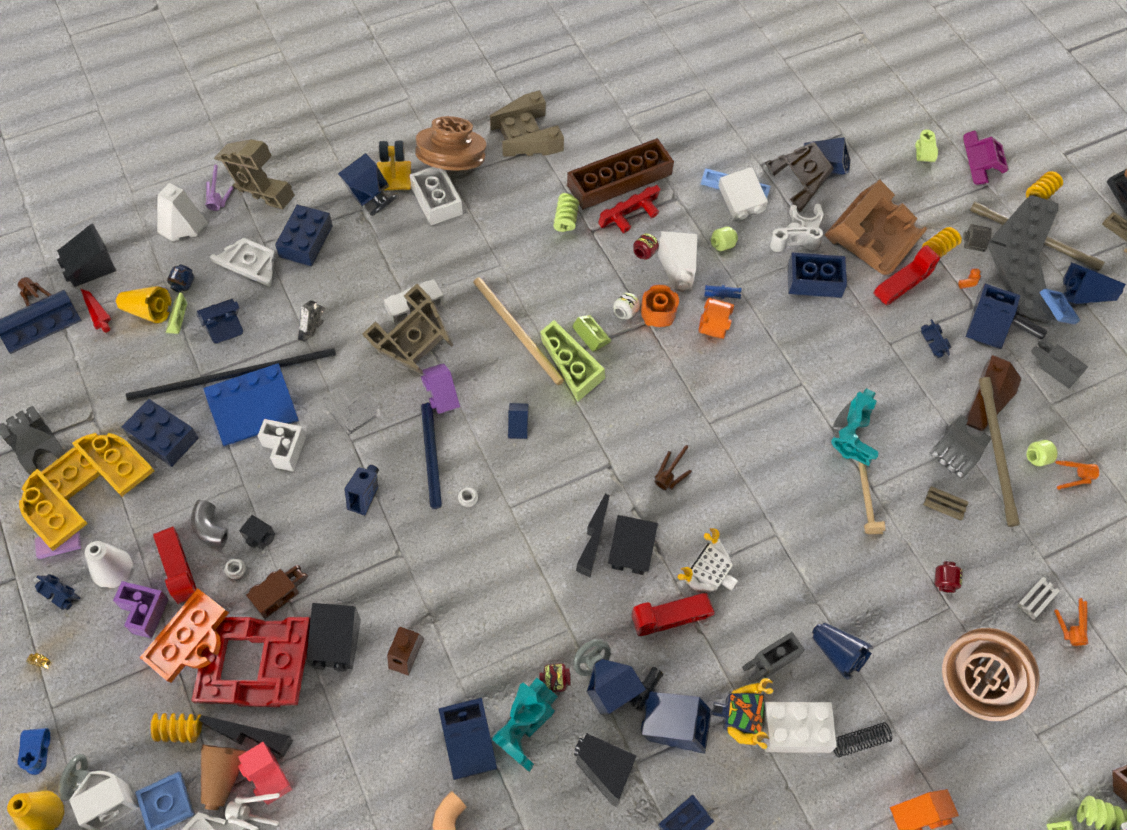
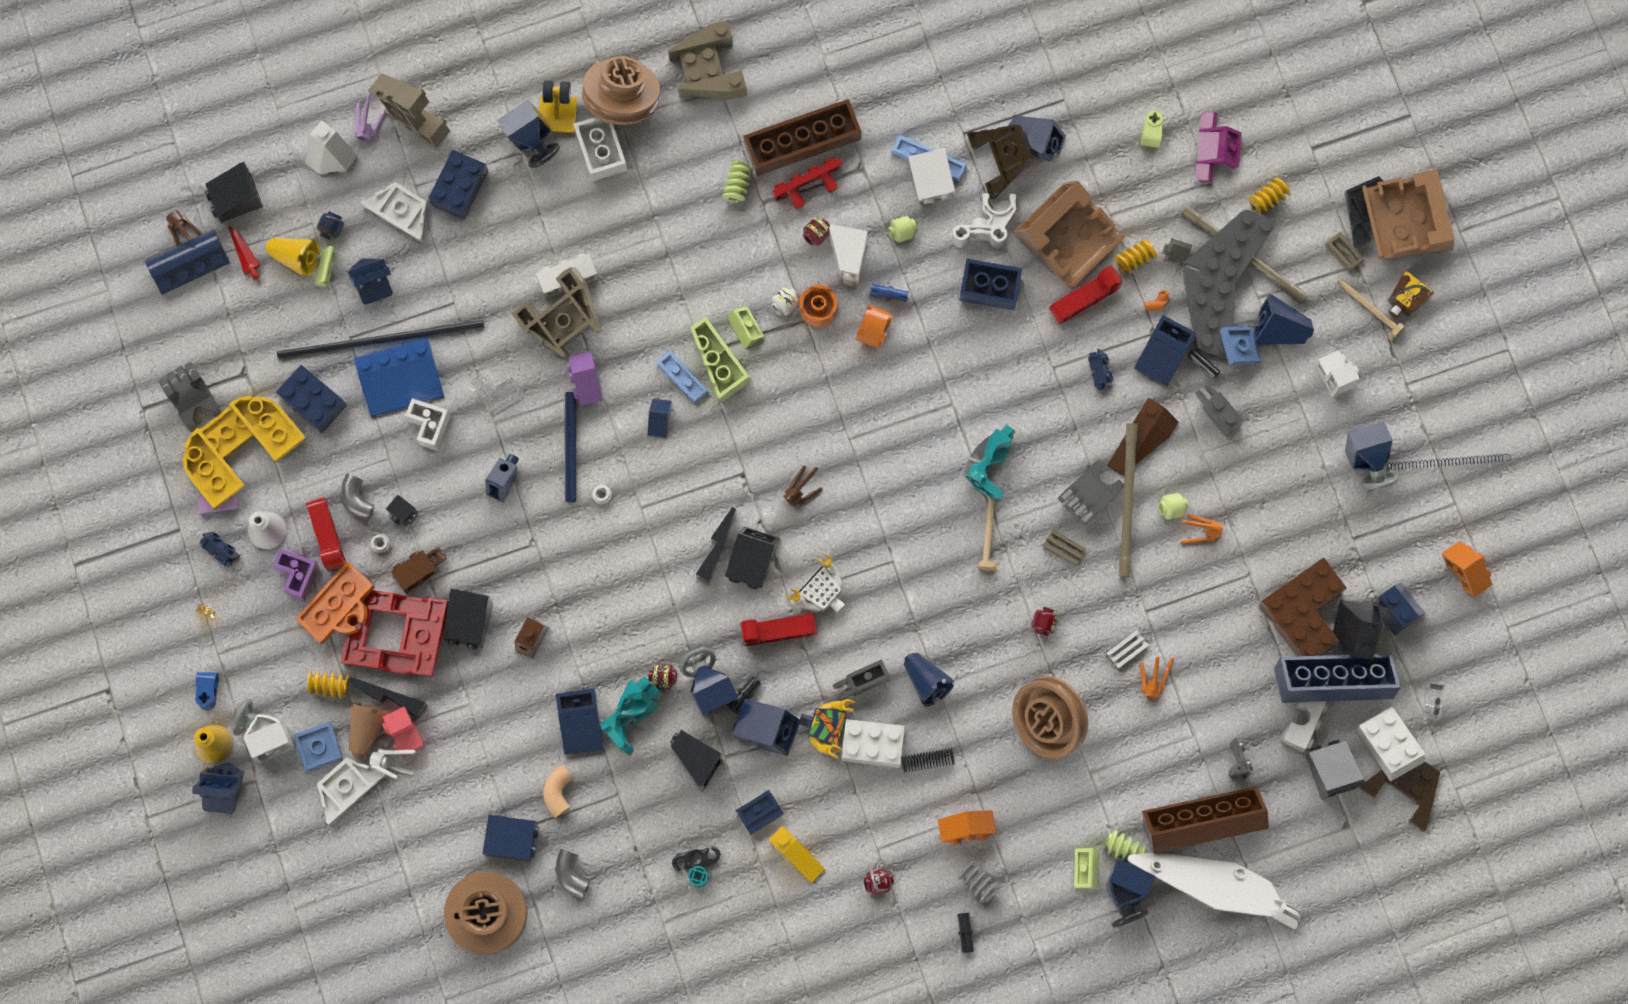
camera: 10 degrees right, 15 degrees up
(309, 320) = (461, 286): clear smoke plate -> none
(519, 332) = (670, 317): tan piece -> none
(536, 381) = (682, 377): none -> light blue tile

